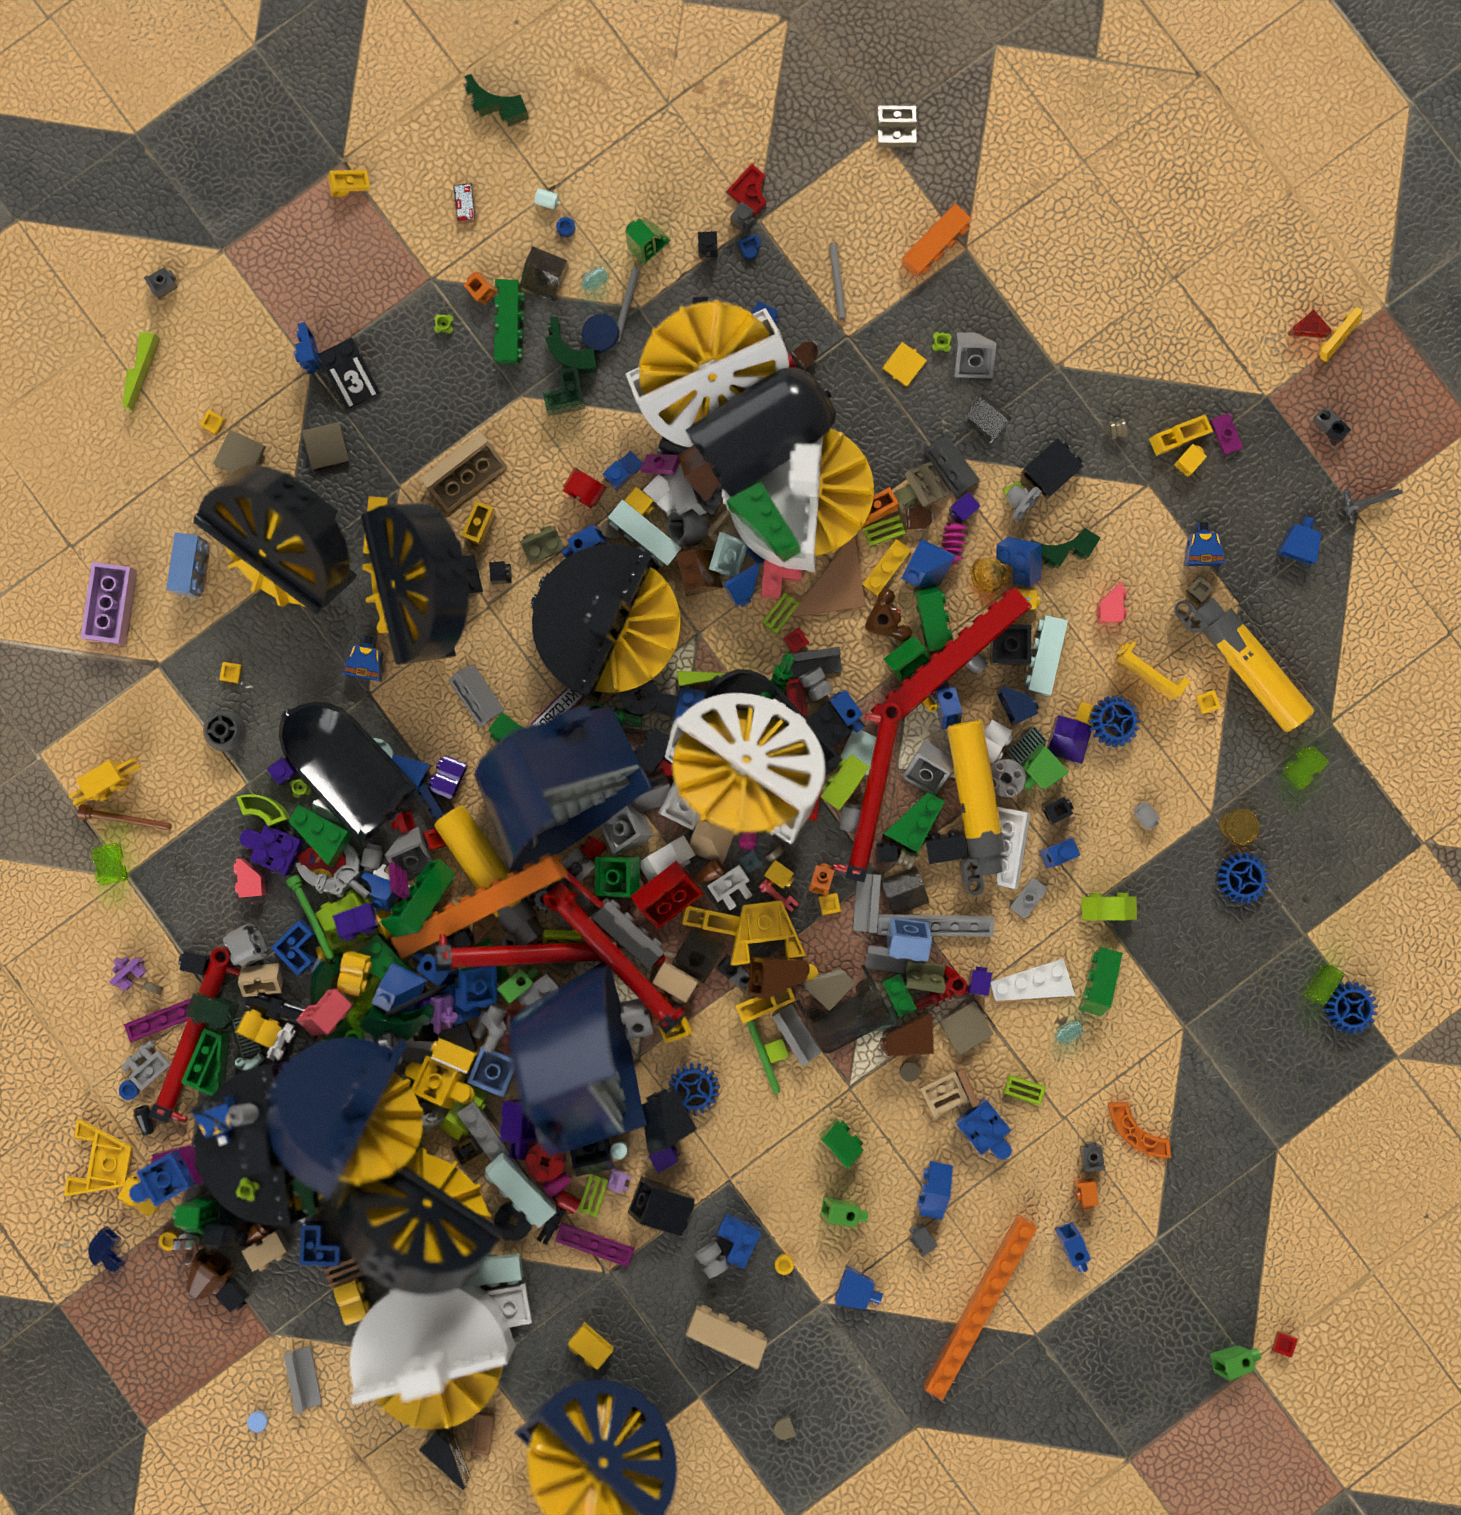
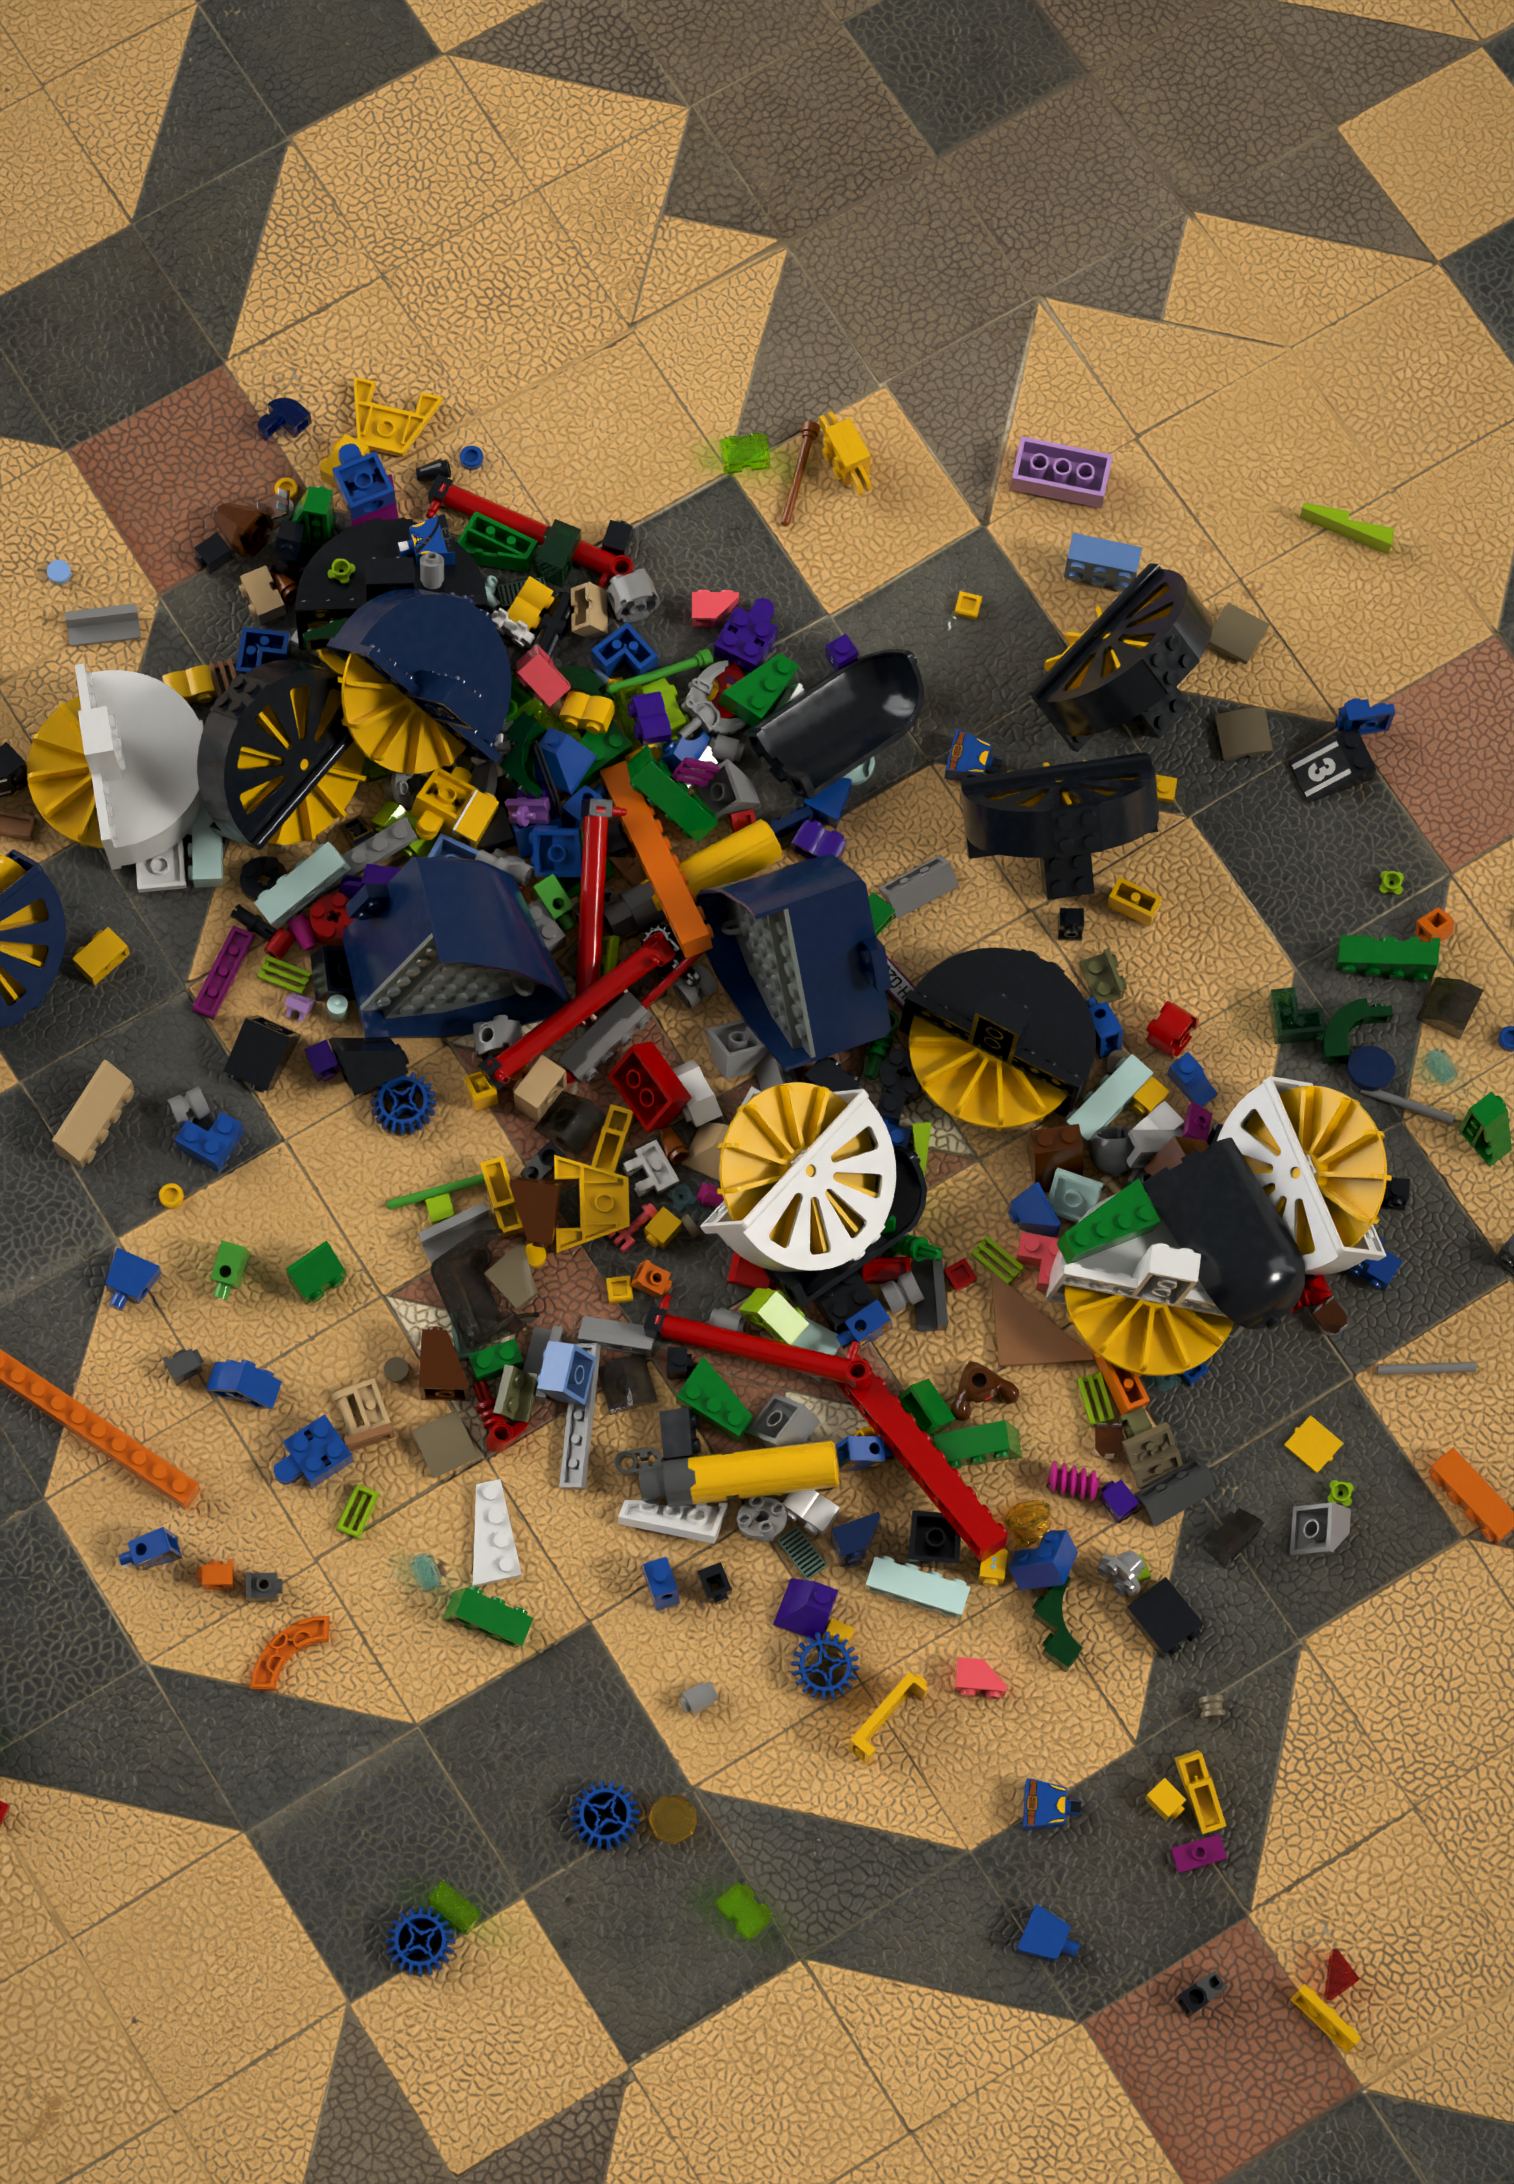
camera: 90 degrees right, 15 degrees down
(135, 967) = (616, 462): medium lavender hips -> none
(150, 1069) = (493, 481): light grey plate -> none
(154, 988) = (591, 491): dark tan tile -> none
(157, 1021) = (549, 491): magenta tile -> none
(162, 288) = (1454, 566): dark grey brick -> none
(211, 727) = (895, 604): dark grey wheel -> none
(212, 422) = (1280, 606): yellow tile -> none
(264, 807) = (799, 628): lime brick -> none
(295, 788) = (814, 670): lime plate -> none
(404, 822) = (767, 788): red tile -> none
(463, 472) = (1200, 891): tan slope -> none
(593, 848) = (715, 1008): red tile -> none
(617, 876) = (679, 1031): green slope -> none
(707, 244) = (1479, 1207): black brick -> none
(749, 247) = (1476, 1262): blue tile -> none
(886, 567) = (1047, 1397): yellow plate -> none
(906, 858) = (669, 1387): dark tan wheel -> none
(928, 565) = (1045, 1442): blue slope -> none
(977, 664) = (914, 1497): light grey brick -> none
(979, 981) = (502, 1465): dark purple brick -> none
(1028, 898) = (604, 1538): light grey plate -> none
(1043, 768) = (769, 1568): bright green torso -> none
(1109, 908) = (582, 1637): lime brick -> none
(1200, 589) = (992, 1799): dark tan tile -> none
(1208, 702) = (841, 1793): yellow plate -> none
(1250, 662) = (893, 1845): yellow piece -> none
(1350, 506) = (1090, 2009): dark grey piece -> none

